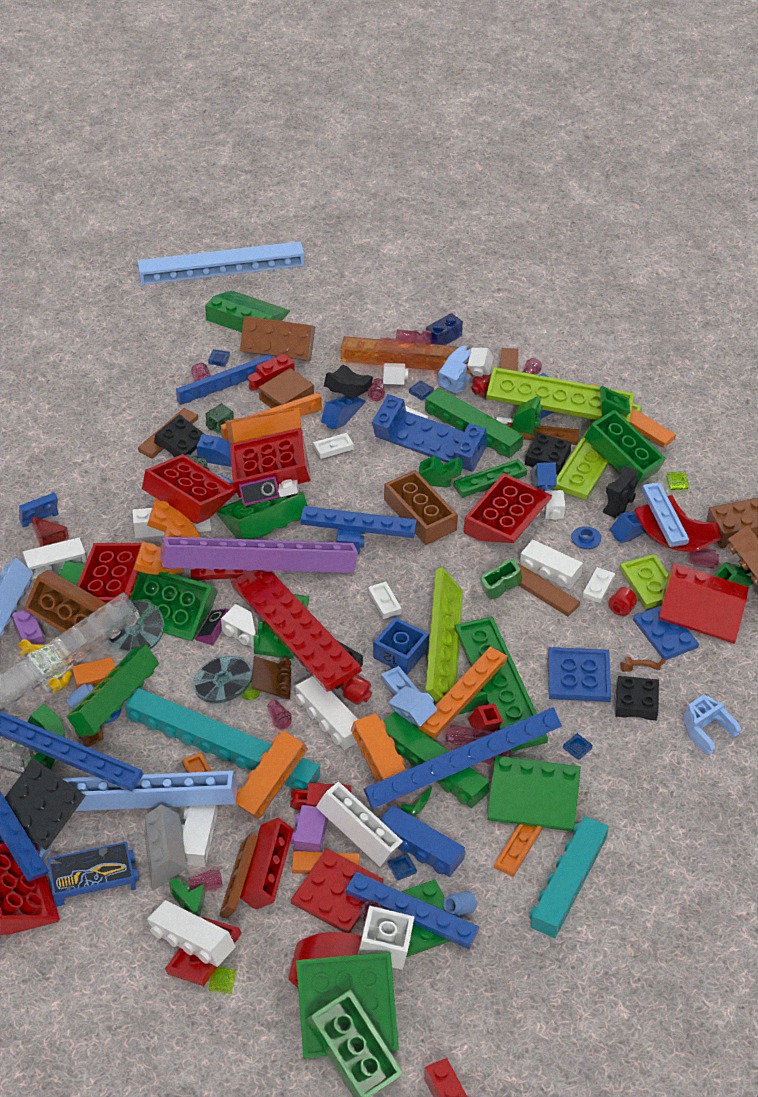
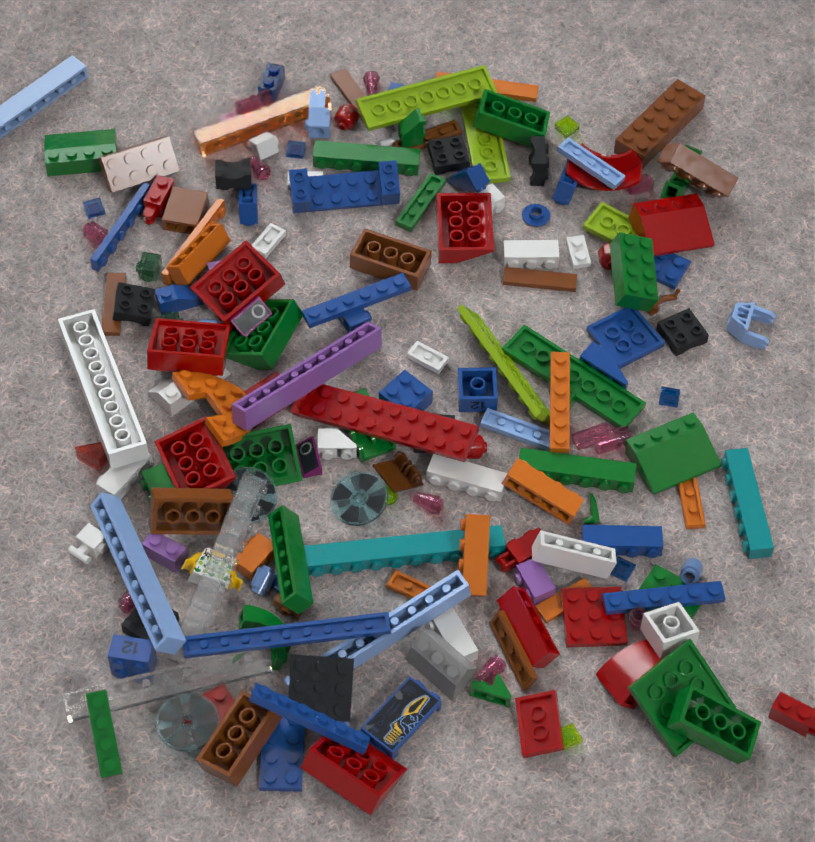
camera: 35 degrees left, 10 degrees up
(38, 508) = (72, 438): blue plate -> none
(91, 485) = (103, 389): none -> white brick
(191, 933) = (523, 716): white brick -> none
(288, 487) = (274, 300): white plate -> none
(337, 617) = (407, 391): none -> blue brick
(413, 705) = (535, 435): light blue brick -> none
(440, 474) = (380, 219): green brick -> none
(462, 758) = (606, 457): blue plate -> none
(480, 361) = (337, 98): white brick -> none
(486, 718) = (591, 414): red brick -> none
(499, 580) = (509, 286): green brick -> none
(535, 678) = (602, 361): none -> blue slope
(612, 400) = (477, 82): green slope -> none
(626, 620) = (633, 272): none -> green brick

